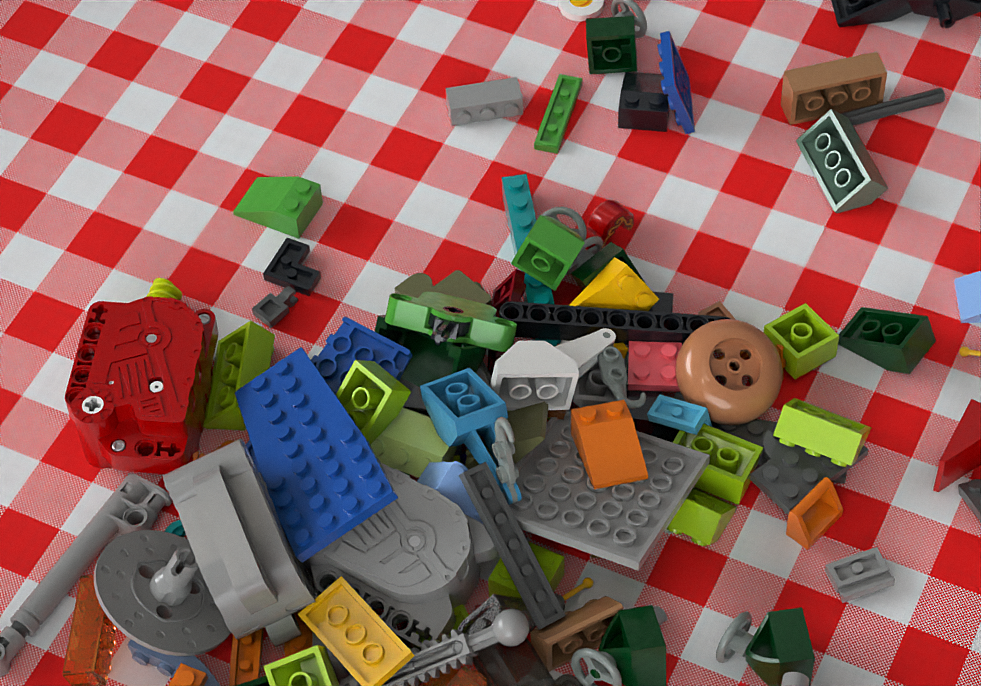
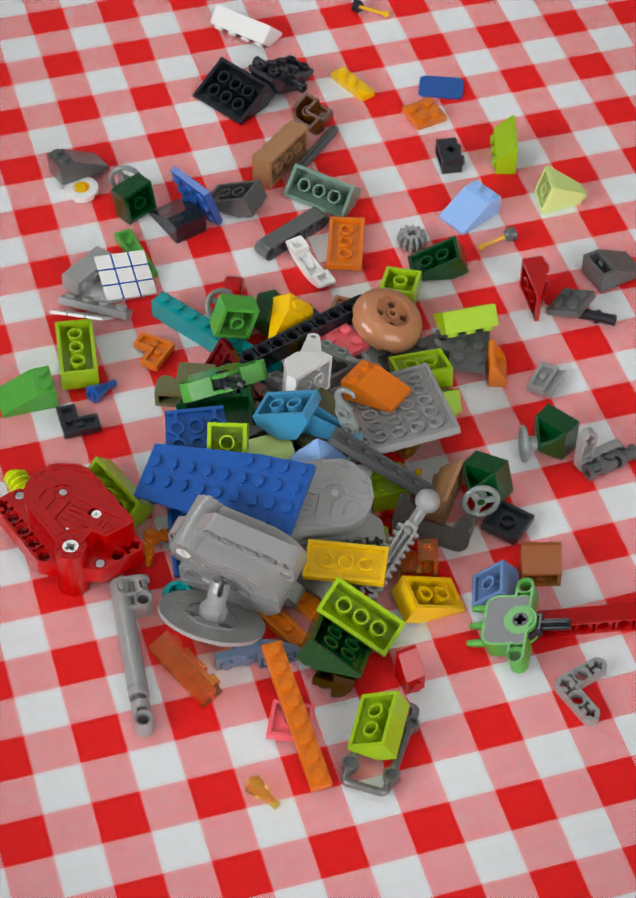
camera: 45 degrees left, 5 degrees down
(273, 308) = (90, 448): dark grey plate -> none
(351, 247) = (97, 391): none -> blue cone
(367, 190) = (76, 354): none -> lime brick
(416, 148) = (81, 314): none -> white piece
(449, 148) = (102, 307): none -> light grey plate
(460, 240) = (156, 350): none -> orange plate
(514, 131) = (125, 275): none -> white piece
(678, 414) = (387, 355): medium azure panel -> none
(732, 242) = (308, 264): none -> white slope
(734, 114) = (239, 198): none -> dark grey slope
(751, 194) = (304, 225): none -> dark grey beam
(801, 244) = (345, 243): none -> orange plate
(885, 287) = (411, 238): none -> light grey gear
(924, 60) = (311, 113): none -> reddish brown brick

